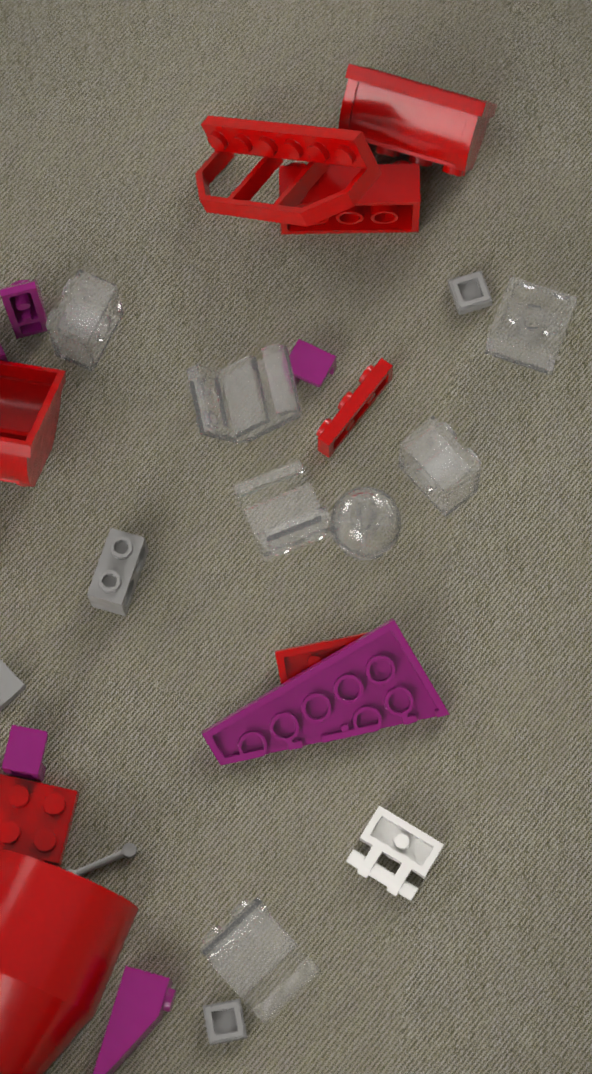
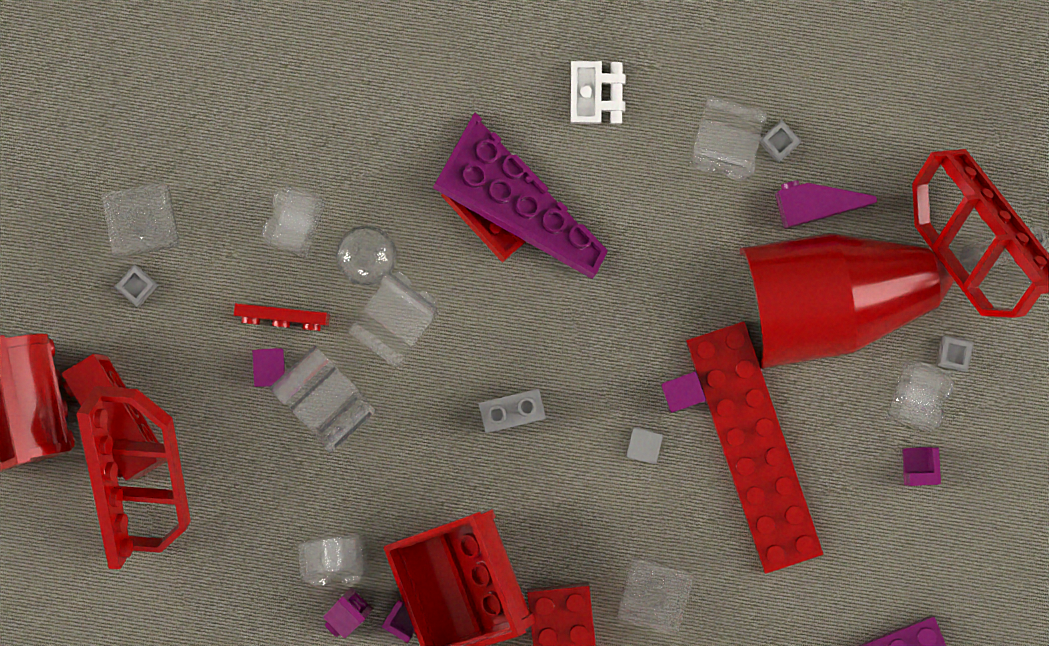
camera: 120 degrees left, 15 degrees up
(128, 850) = (704, 279): light grey hinge -> none

